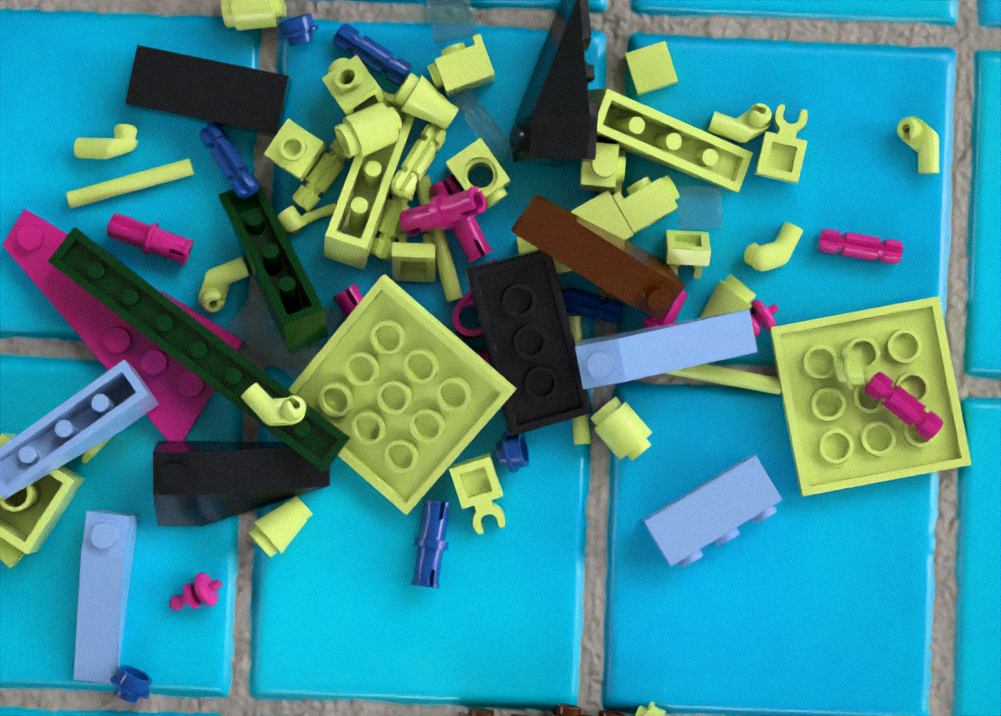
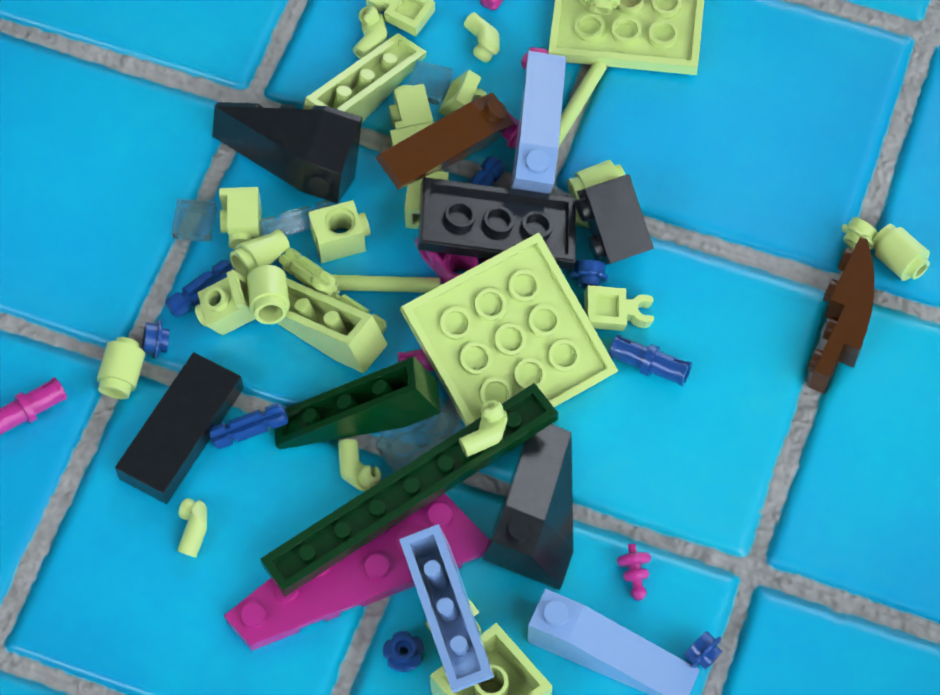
camera: 70 degrees left, 25 degrees down
(31, 392) = (408, 661): none -> blue plate
(130, 183) = (235, 522): yellowish green bar -> none
(150, 238) = (293, 514): dark pink axle -> none
(280, 526) = (596, 480): yellowish green cone -> none
(293, 222) = (325, 383): yellowish green hand -> none
(295, 150) = (262, 366): yellowish green brick -> none
(321, 177) = (289, 355): yellowish green axle -> none
(414, 260) = (390, 298): yellowish green tile -> none
(443, 211) = (361, 258): dark pink pin -> none
(467, 229) = (371, 257): dark pink pin -> none
(574, 463) = (613, 220): none -> black brick
(605, 171) = (374, 133): yellowish green brick -> none
(651, 68) = (297, 84): yellowish green tile -> none
(713, 511) = (690, 136): light blue brick -> none
(728, 297) = (511, 76): yellowish green cone -> none

